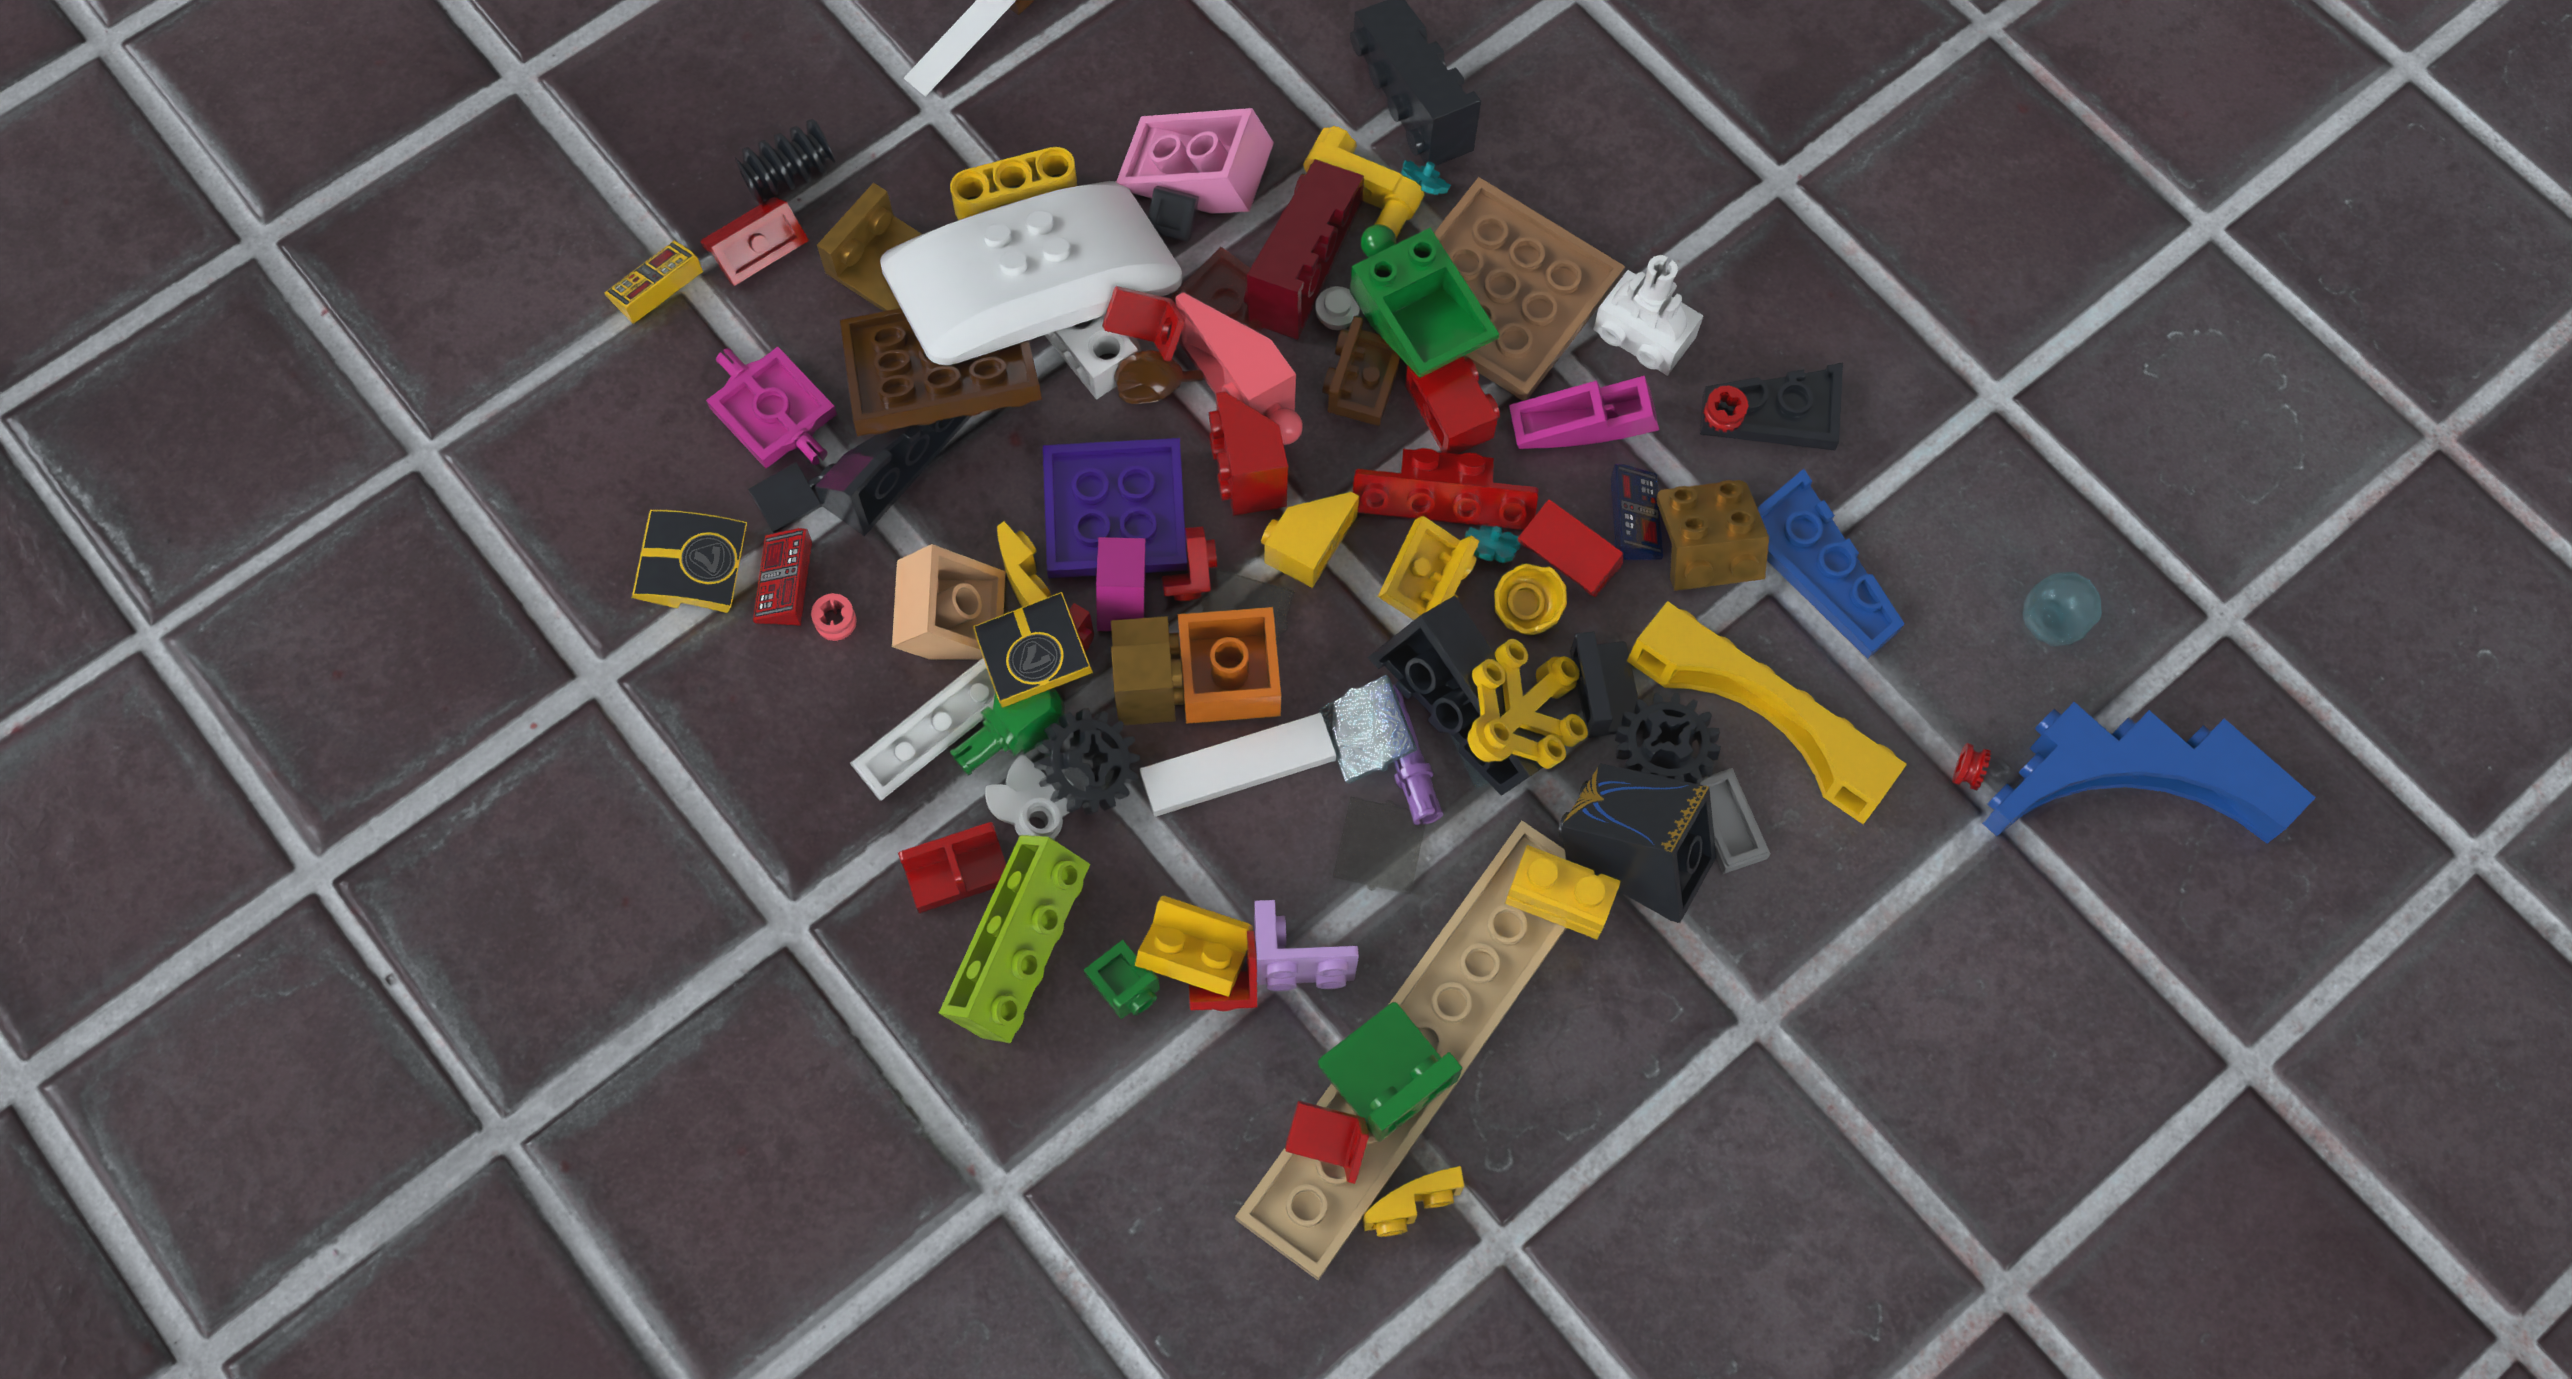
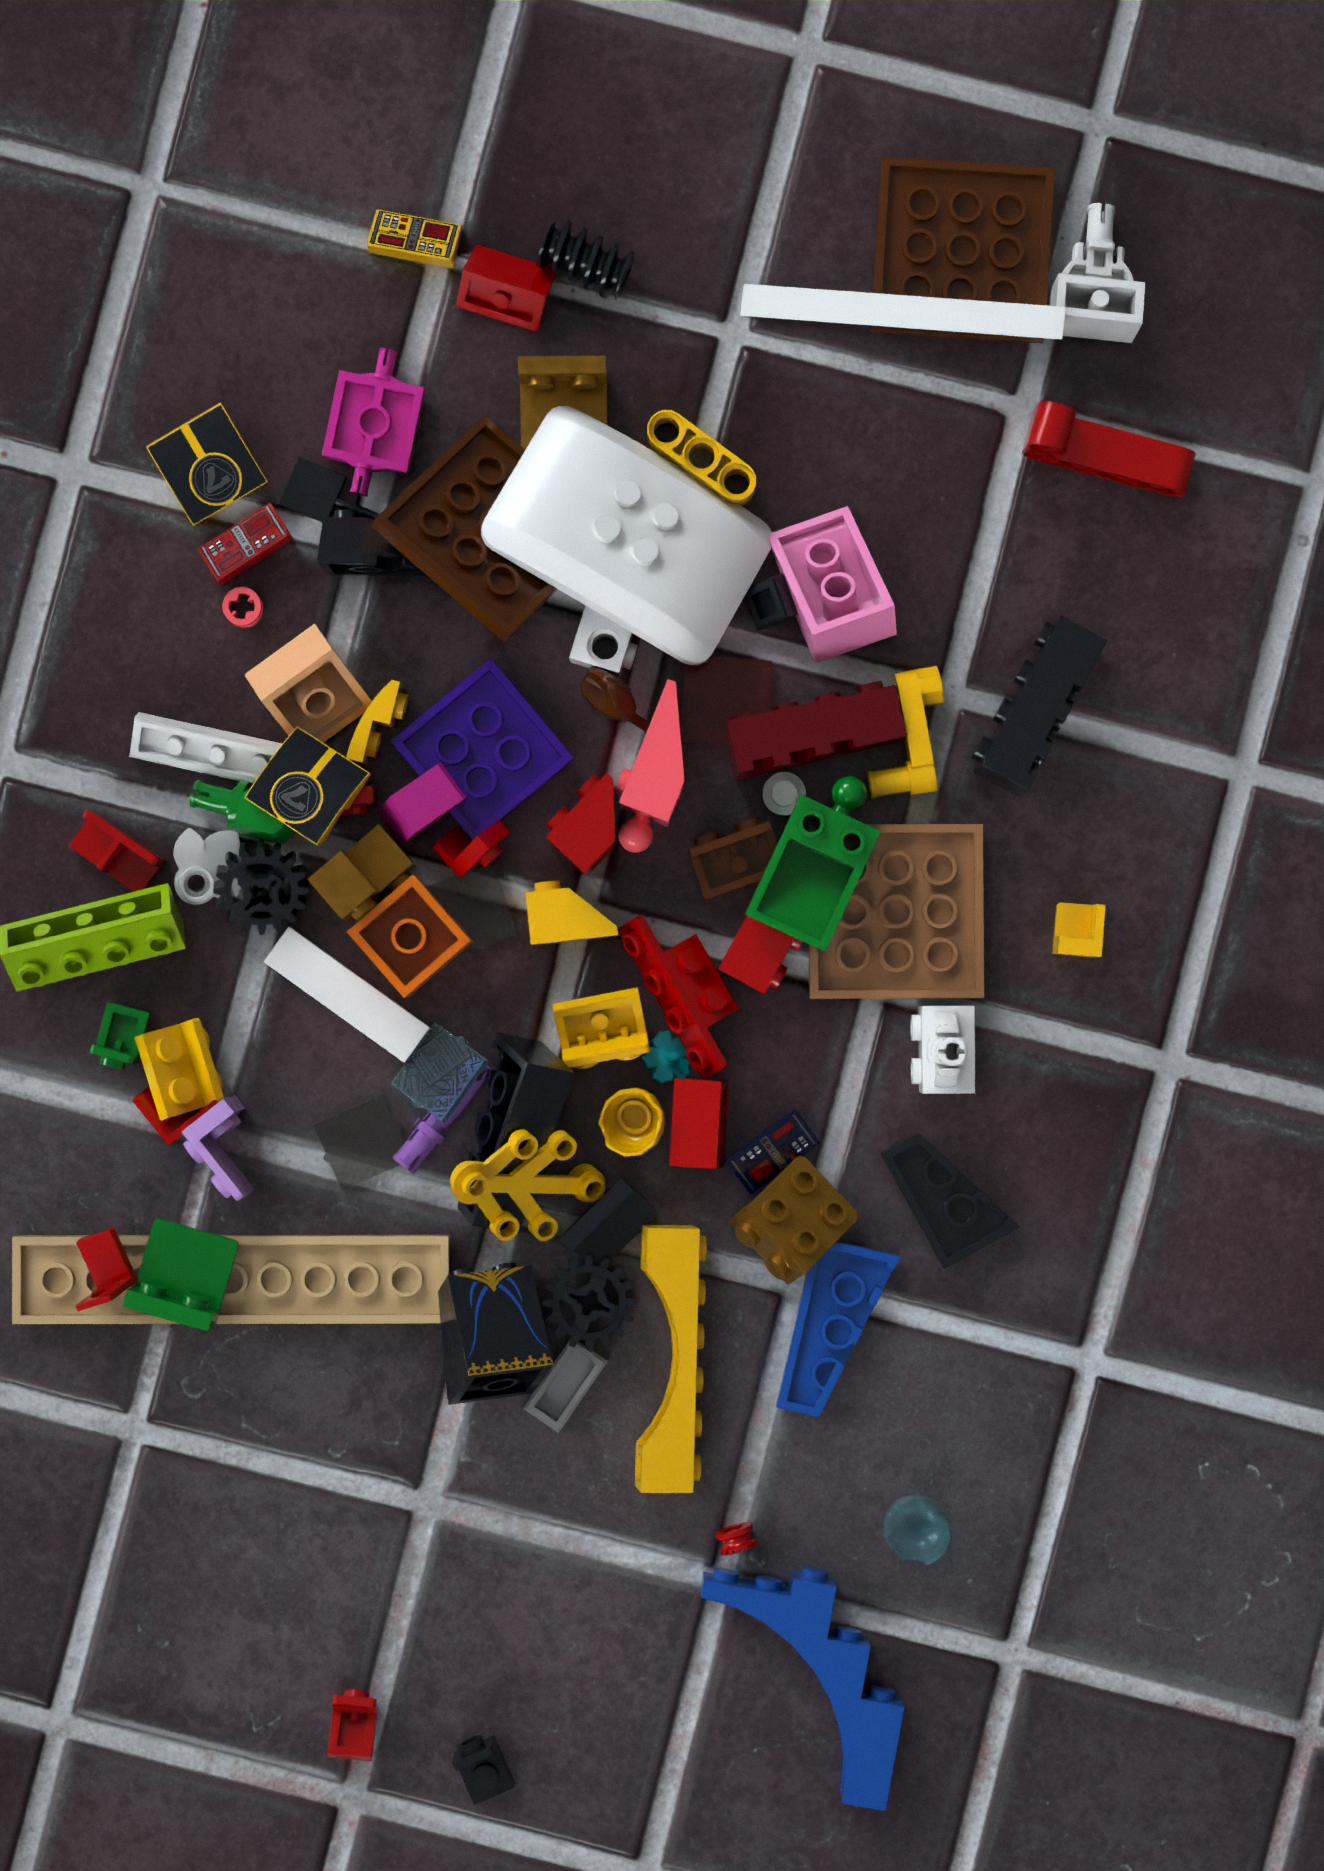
camera: 55 degrees right, 20 degrees up
(1144, 318) = (645, 661): red bracket -> none
(1399, 1207) = (98, 1343): yellow slope -> none
(1426, 177) = (953, 779): teal plant -> none
(1562, 892) = (403, 1308): yellow brick -> none
(1585, 415) = (826, 1054): dark pink slope -> none
(1621, 168) = (1079, 929): none -> yellow panel
(1719, 418) = (918, 1162): red bush -> none
(1934, 1230) = (353, 1726): none -> red bracket
(2052, 1141) = (482, 1768): none -> black bracket

